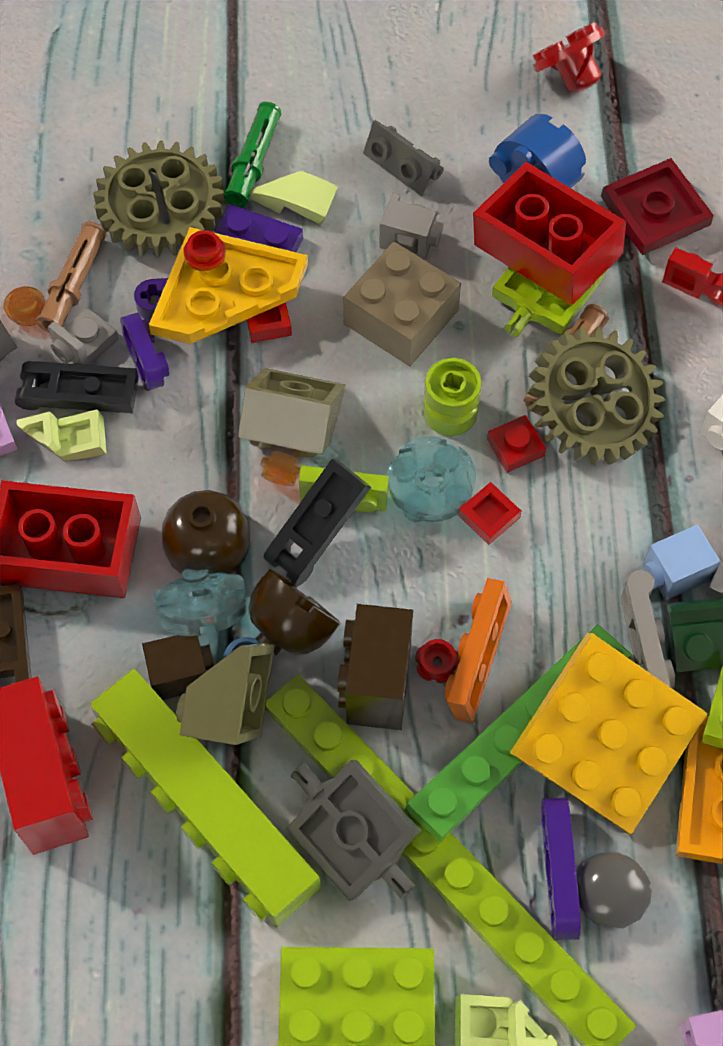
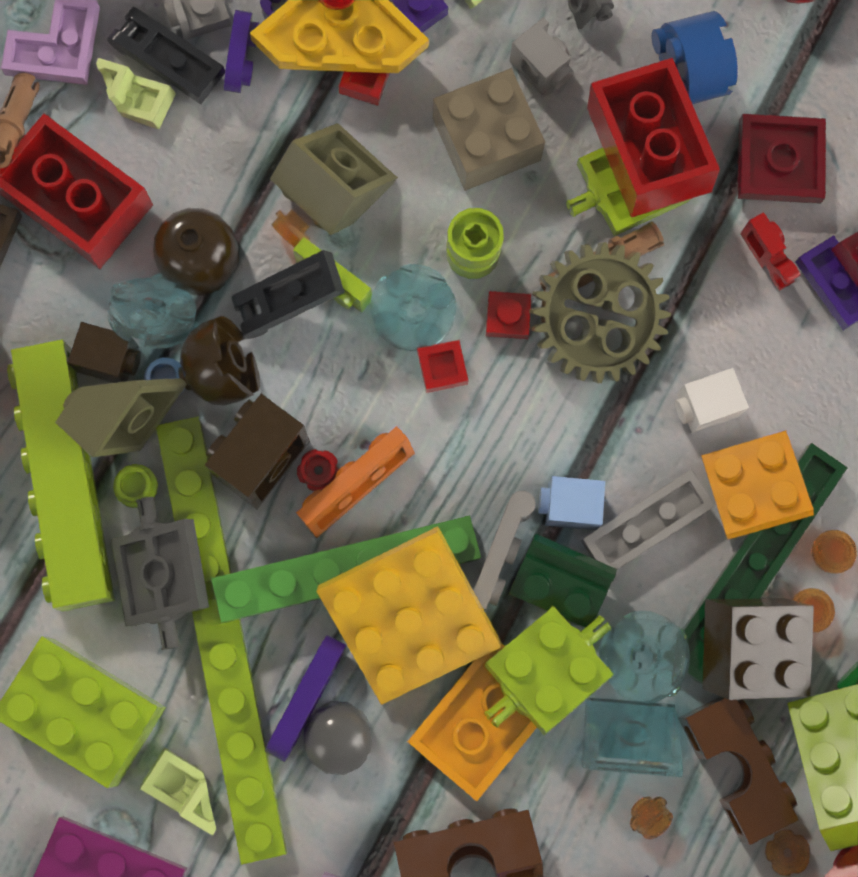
camera: 25 degrees right, 15 degrees up
(275, 767) = (134, 483): none -> lime plate

